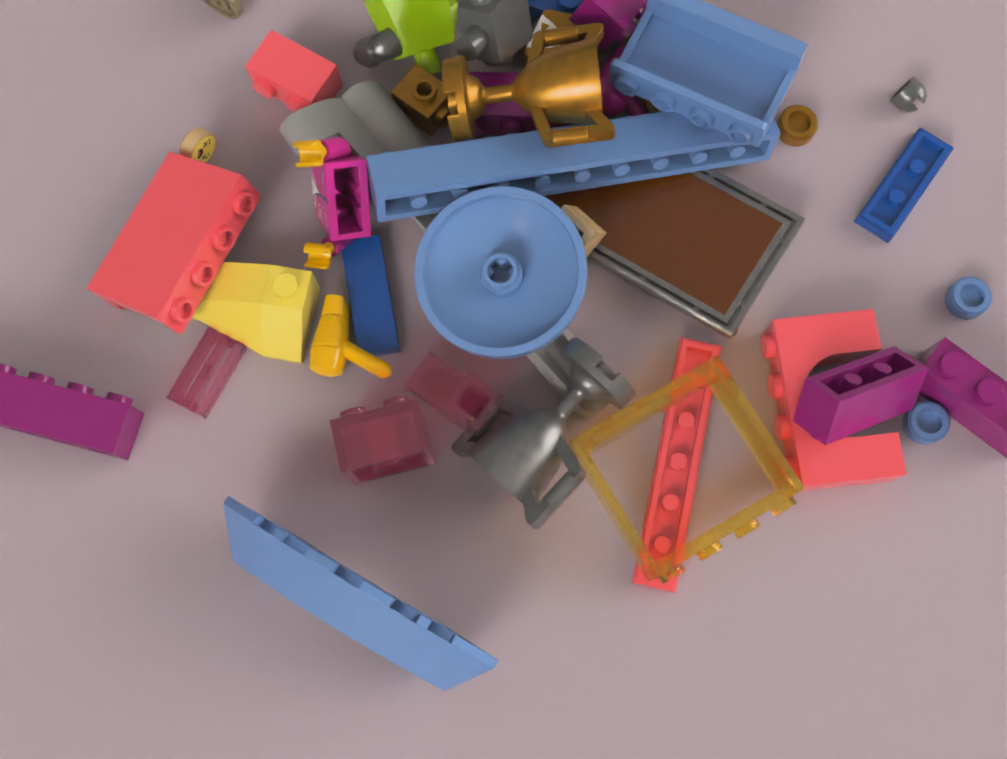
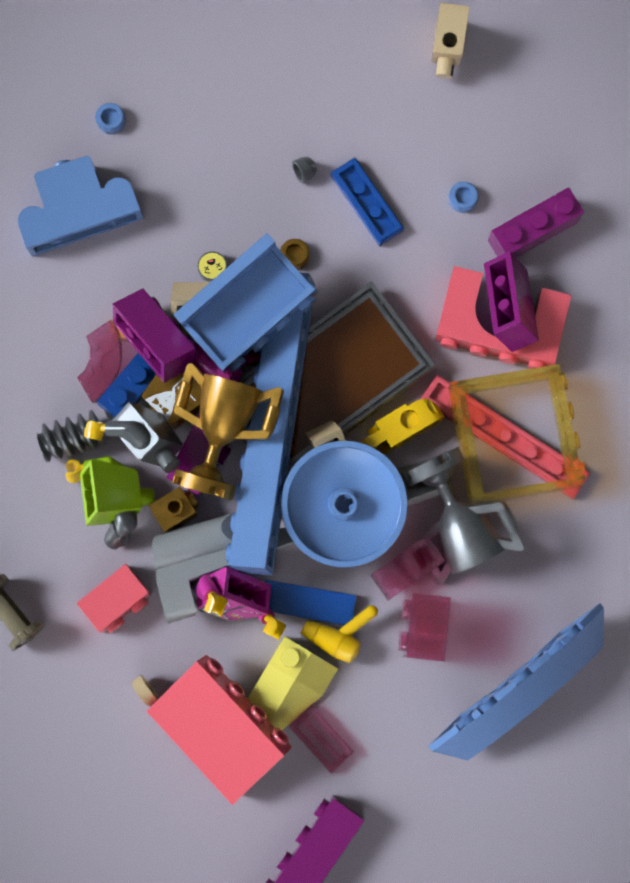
camera: 70 degrees left, 5 degrees up
(635, 325) = (403, 425): none -> yellow piece
(926, 422) = (538, 263): medium blue tile -> none

